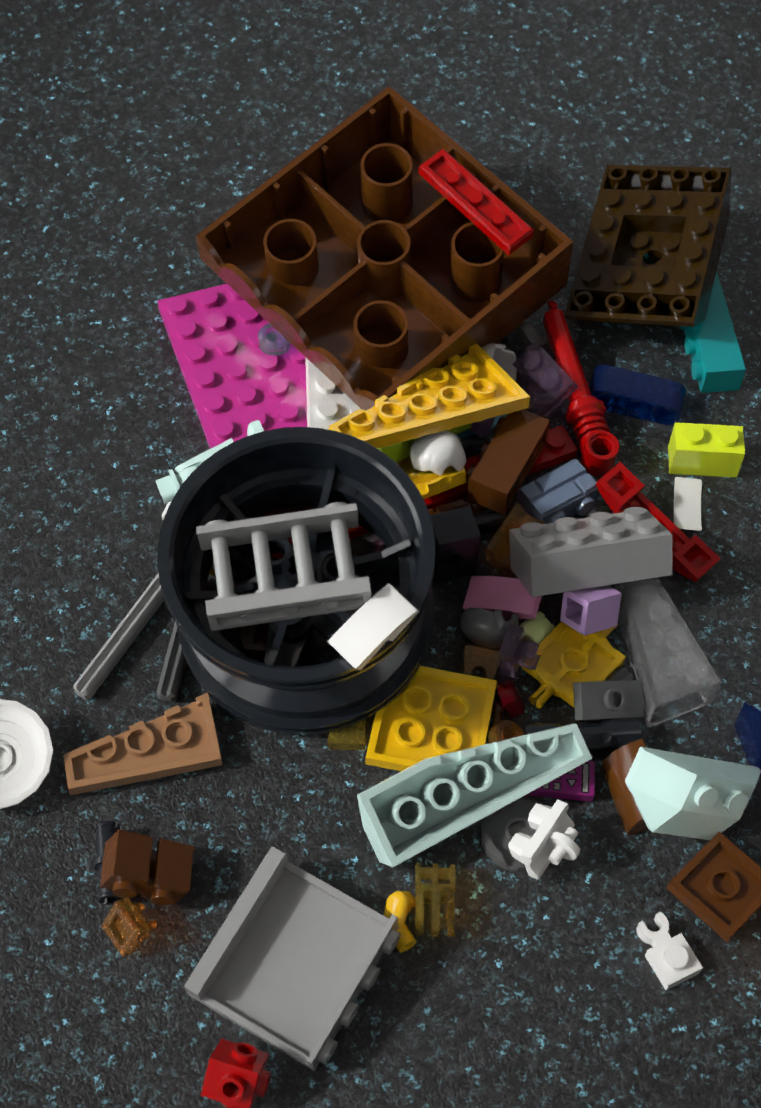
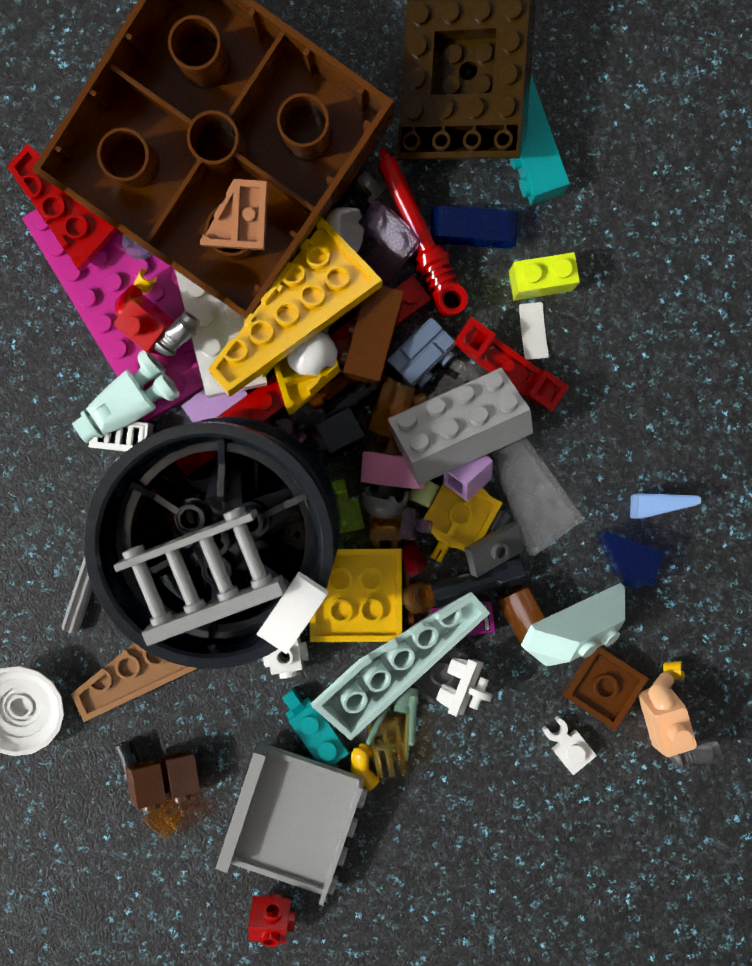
camera: 10 degrees left, 30 degrees up
(210, 301) = (74, 226): none -> red wing
(271, 401) = (148, 323): none -> red torso
(333, 760) = (288, 666): none -> white brick
(346, 860) = (314, 730): none -> teal hinge
(395, 308) = (240, 218): none -> nougat wing
(444, 633) = (349, 510): none -> clear neon green plate
(466, 850) = (406, 704): none -> sand green plant
(476, 202) = (290, 74): red tile -> none

